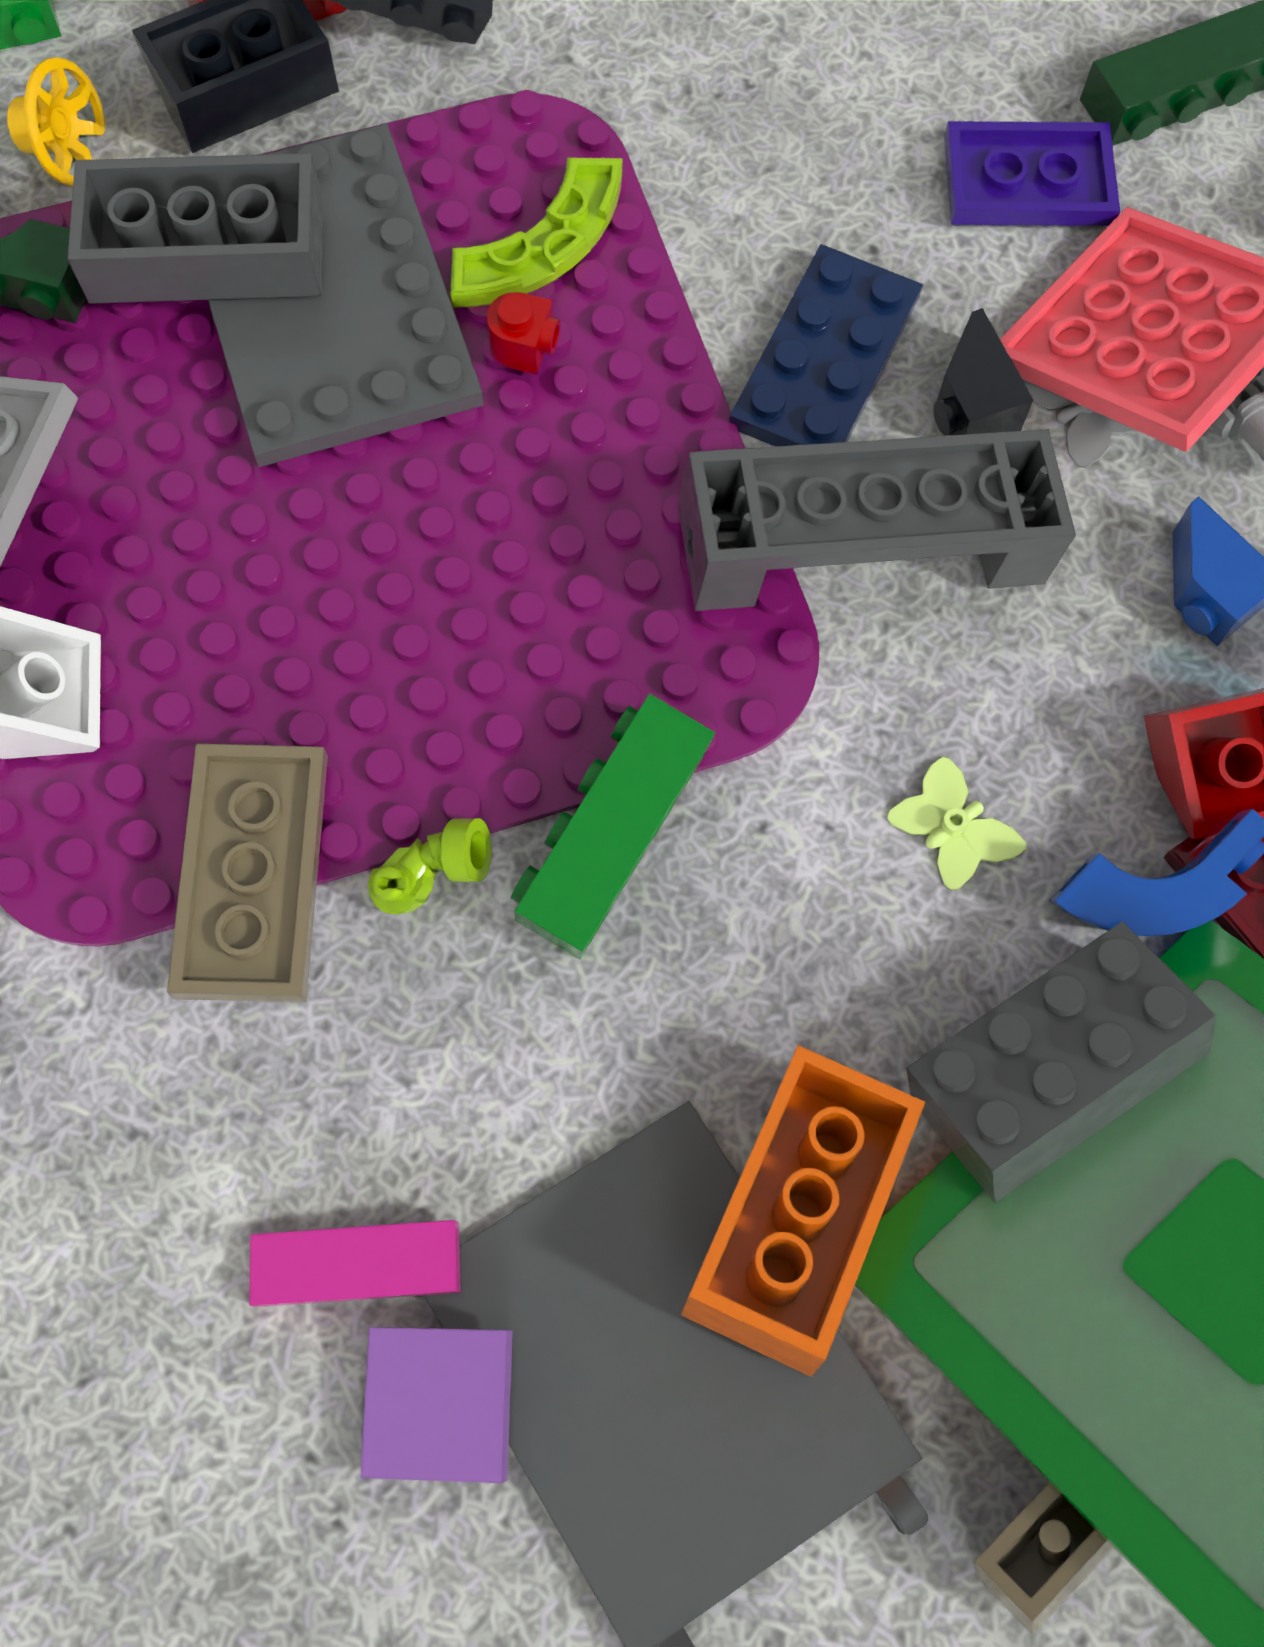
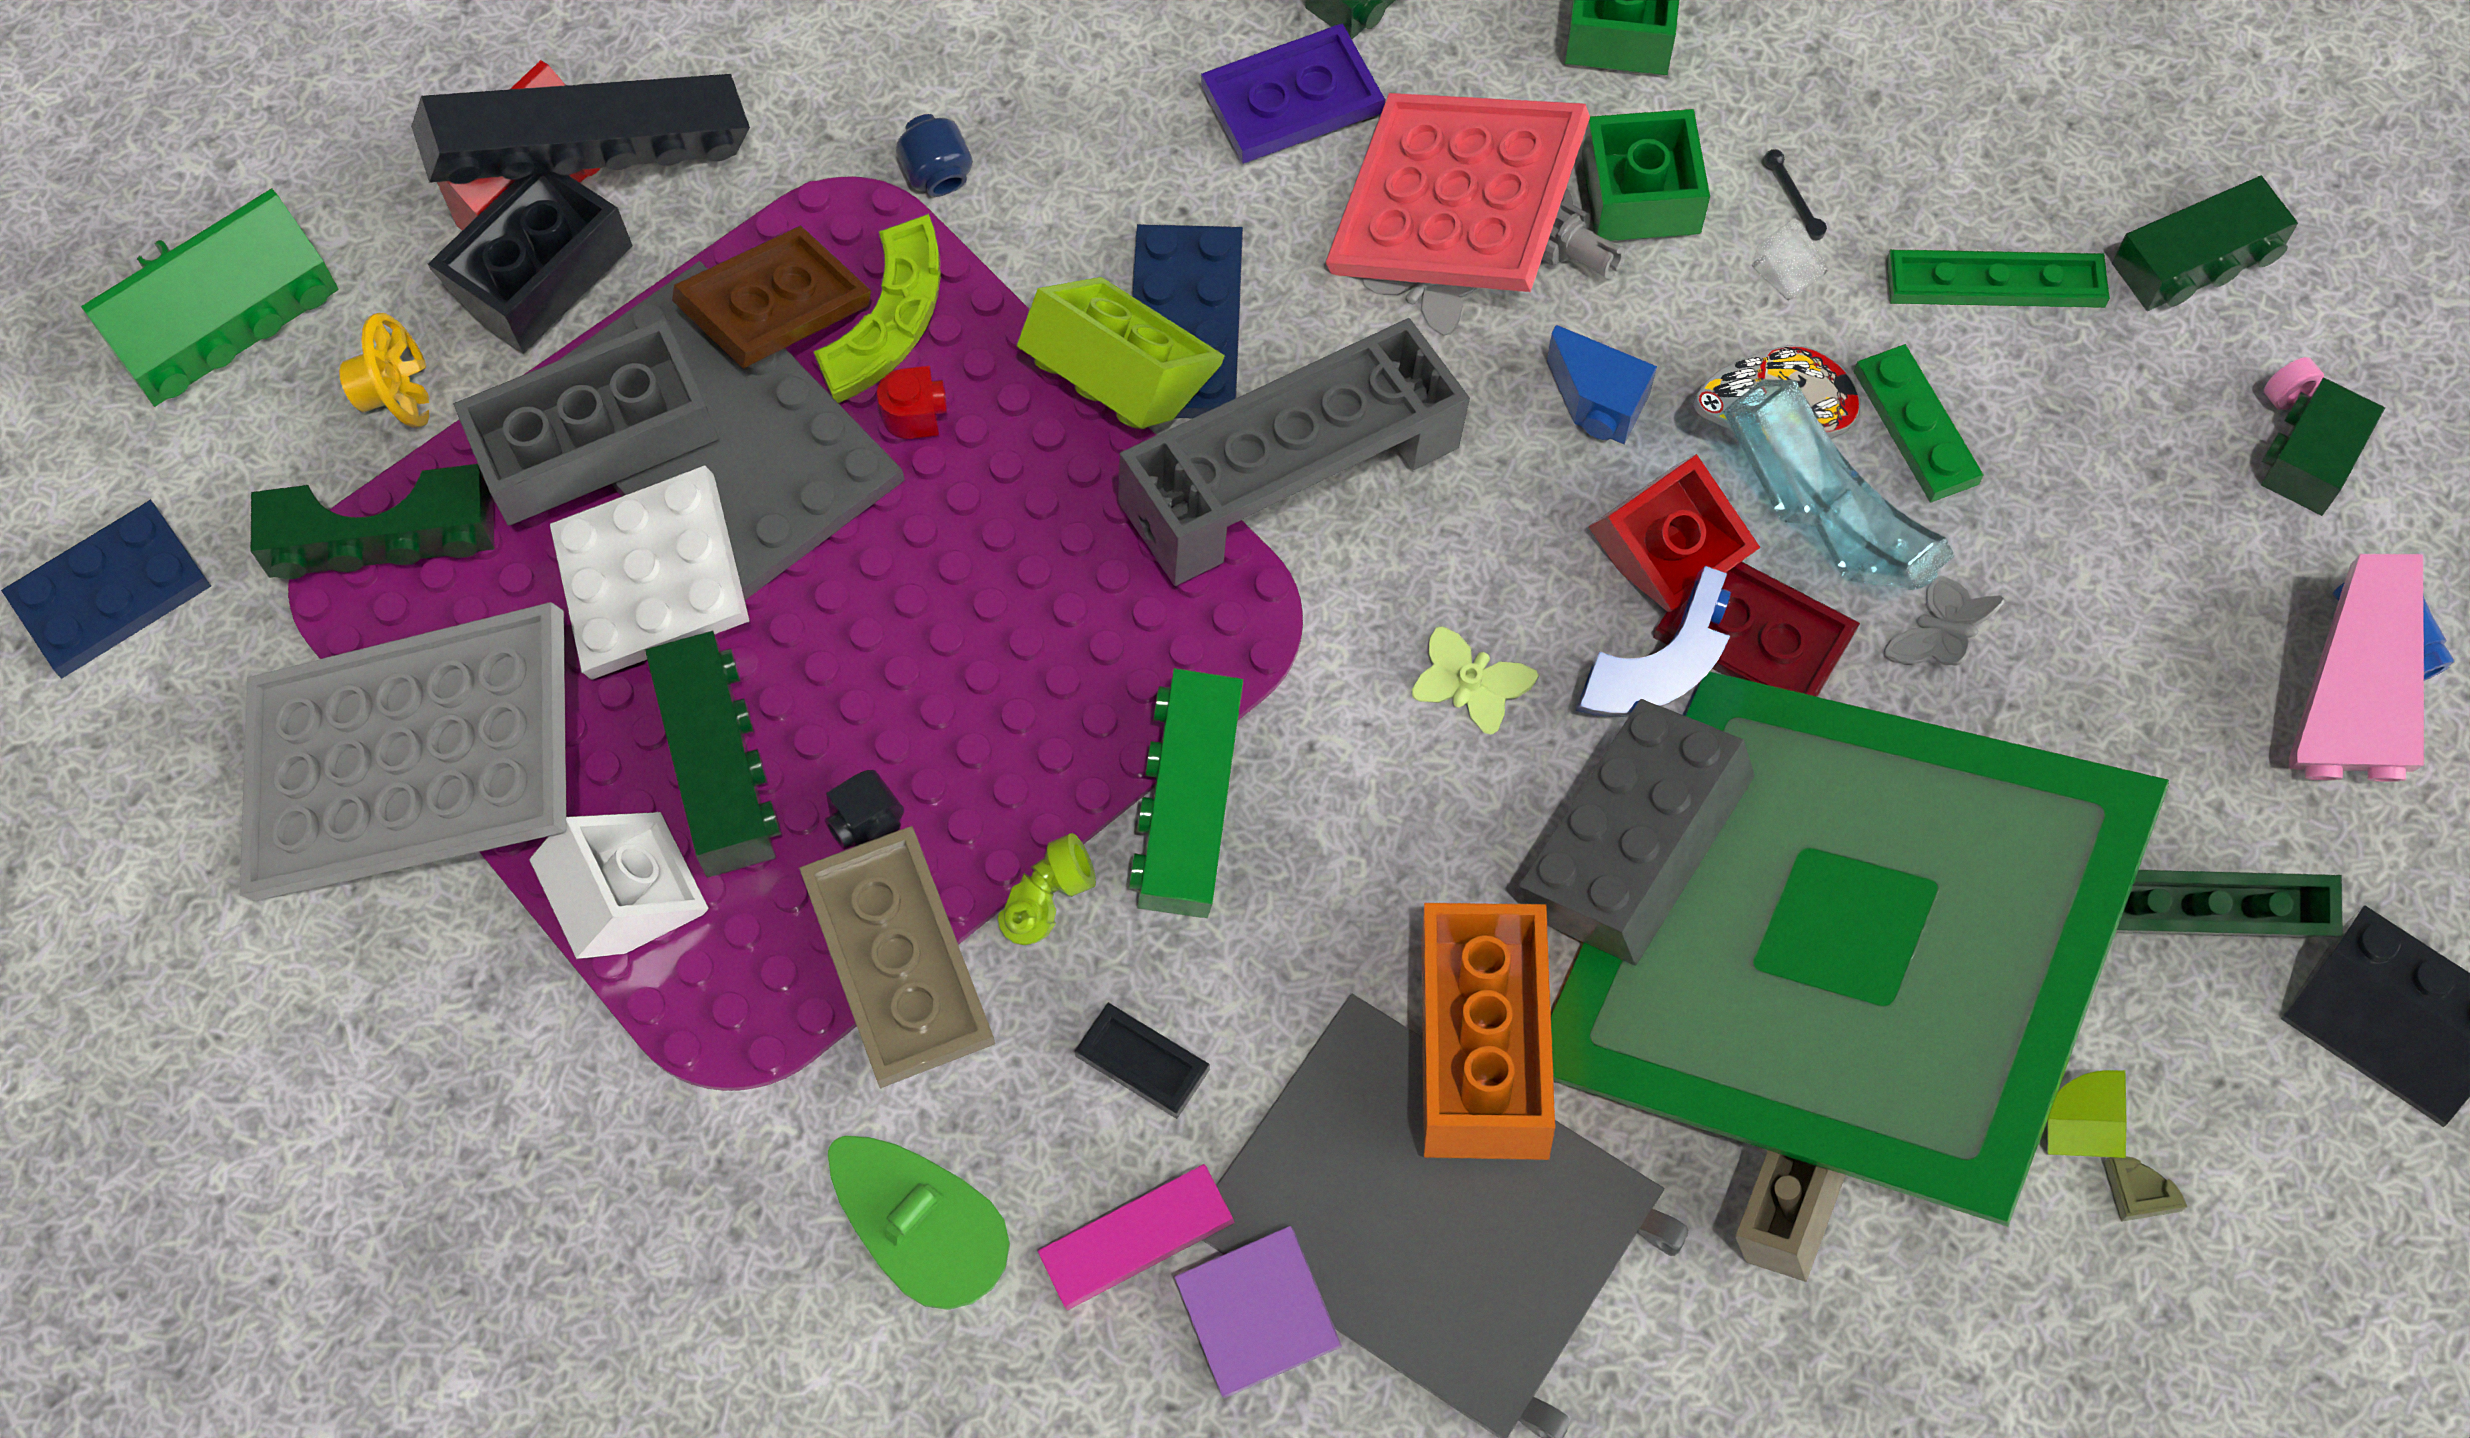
camera: 20 degrees left, 5 degrees down
(156, 1150) = (919, 1222): none -> bright green shield
(169, 597) = (711, 753): none -> dark green brick
(196, 398) = (648, 571): none -> white plate
(285, 710) = (862, 810): none -> black plate
(432, 177) = (771, 296): none -> reddish brown plate
(448, 1079) = (1142, 1060): none -> black tile
(655, 106) = (934, 155): none -> dark blue head
(741, 354) = (1117, 350): none -> lime slope
(981, 385) = (1333, 300): black slope -> none

